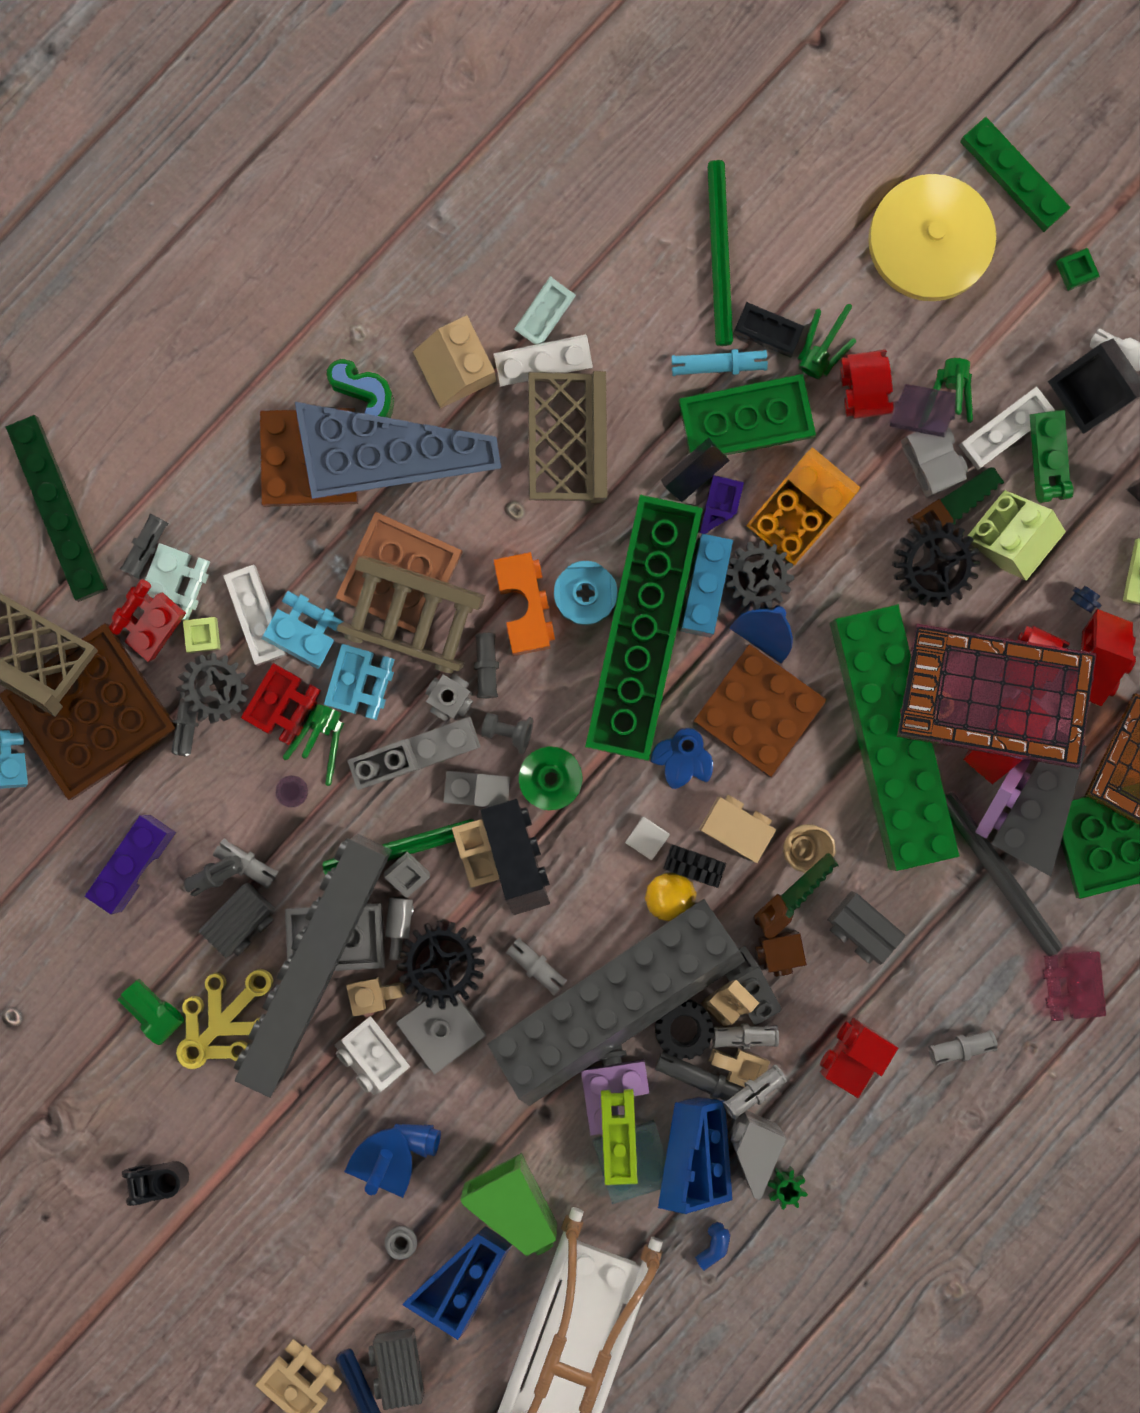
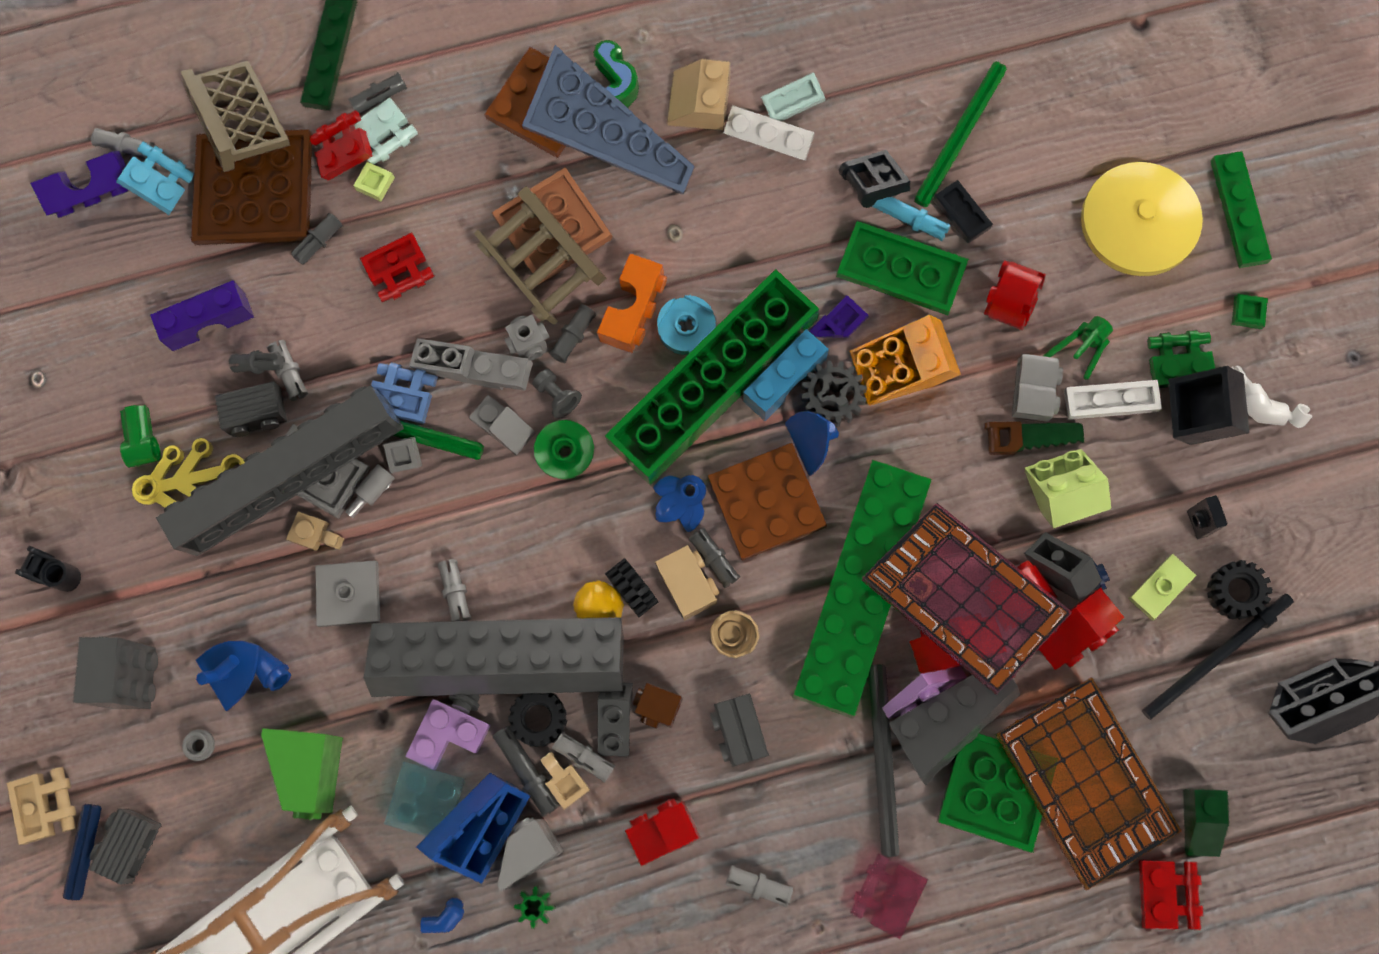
camera: 40 degrees right, 10 degrees down
(218, 701) = (357, 211): dark grey gear -> none
(253, 612) = (423, 191): white plate -> none
(291, 791) = (360, 338): clear purple plate -> none
(292, 1236) = (115, 673): none -> dark grey brick
(297, 637) = (442, 224): medium azure plate -> none
(321, 721) = (420, 300): green plant -> none
(349, 681) = (461, 280): medium azure plate -> none
(371, 1056) = (278, 579): white bracket -> none
(376, 825) = (407, 403): none -> medium blue plate
(455, 959) = (358, 531): black gear -> none
(459, 1286) = (220, 807): blue wedge -> none
(475, 852) = (468, 471): tan slope -> none
(516, 856) = (494, 493): black wedge -> none
(595, 436) = (773, 206): dark tan fence -> none
(619, 1138) = (424, 769): lime plate -> none
(647, 838) = (610, 546): white slope -> none
(675, 338) = (882, 172): none -> black plate
(694, 470) = (834, 281): black slope -> none
(729, 1003) = (587, 717): tan slope -> none
(746, 791) = (714, 557): none -> dark grey pin
(754, 1092) = (581, 803): light grey pin -> none
(784, 905) = (679, 668): piece -> none
(815, 361) = (986, 254): green plant -> none
(924, 410) = (1049, 343): clear purple piece -> none
(932, 551) = (990, 445): black gear -> none
(1050, 455) = (1136, 441): green plate -> none
(1051, 359) = (1172, 366): none -> green plate
(1058, 612) = (1064, 566): none -> dark grey brick

